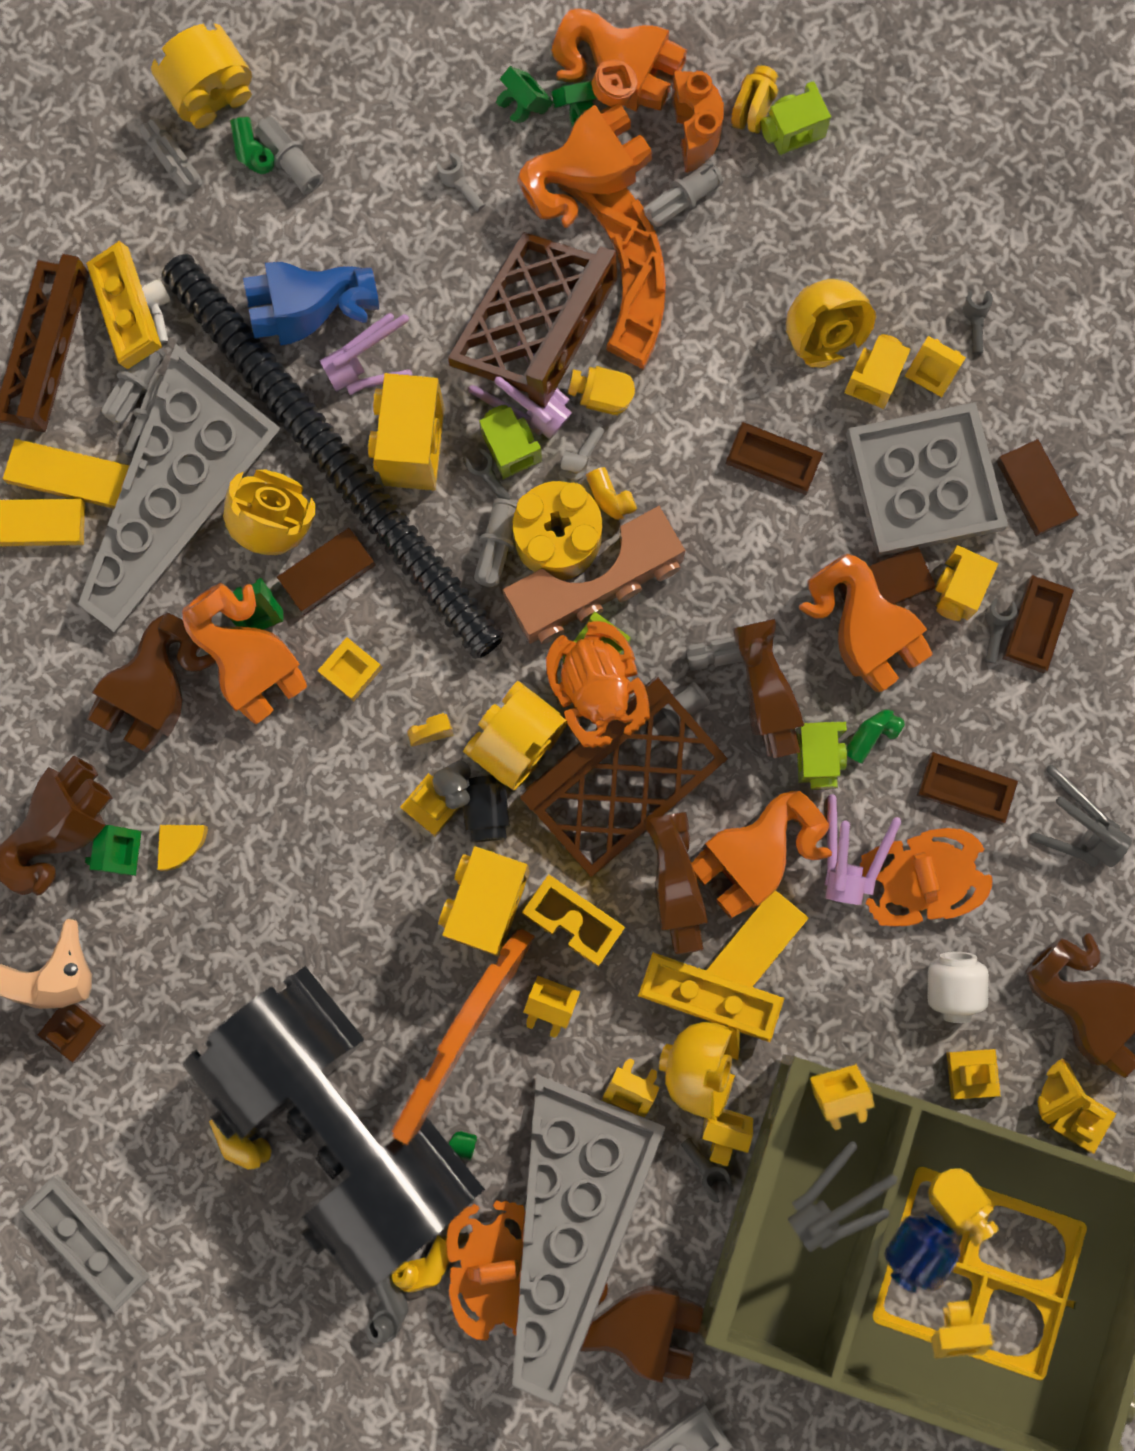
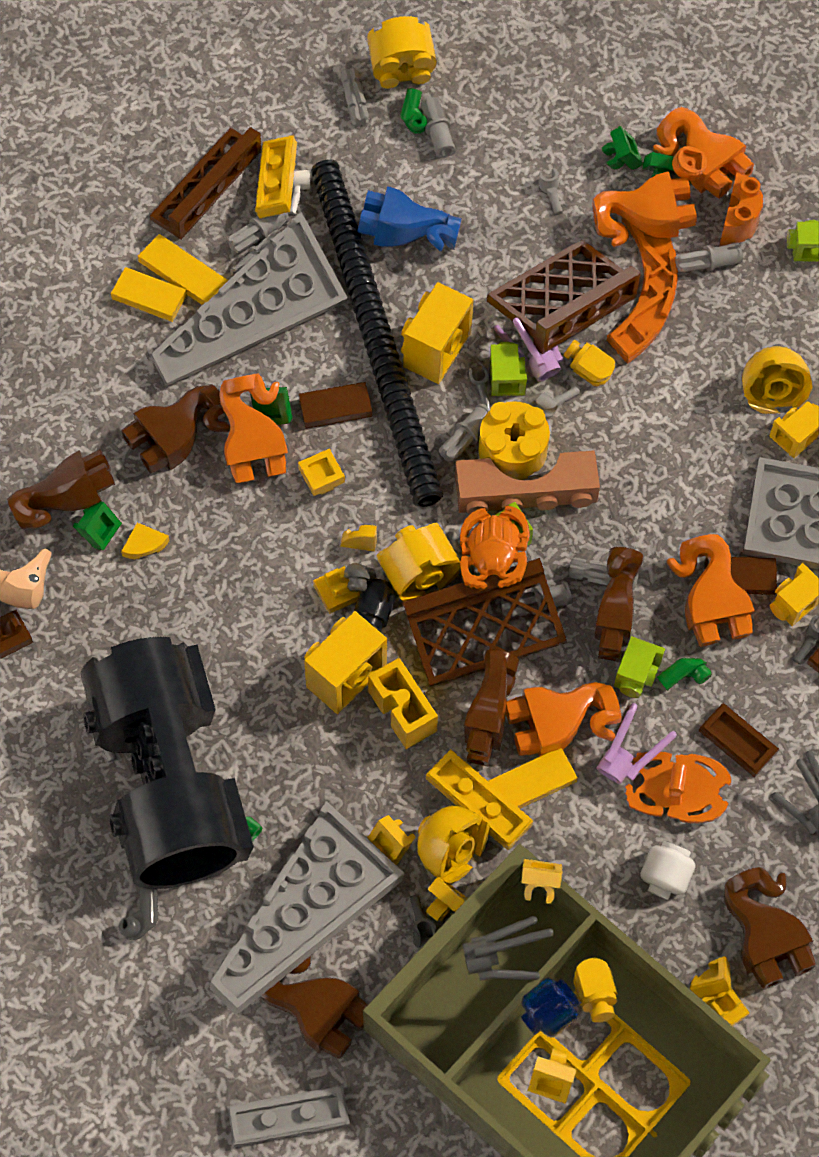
camera: 20 degrees right, 15 degrees down
(246, 1154) = (86, 761): yellow arm -> none
(267, 512) = (311, 347): yellow cylinder -> none
(343, 365) = (412, 275): lavender plant -> none
(423, 1272) = (182, 904): yellow arm -> none
(460, 1034) = (292, 722): orange tile -> none
(488, 1270) = (225, 918): orange shield -> none
(550, 1003) = (360, 755): yellow tile -> none
(606, 497) = (560, 434): yellow arm -> none
(755, 98) = (788, 214): yellow arm -> none
(774, 458) = (696, 458): reddish brown tile -> none
(973, 1074) = (655, 938): yellow tile -> none

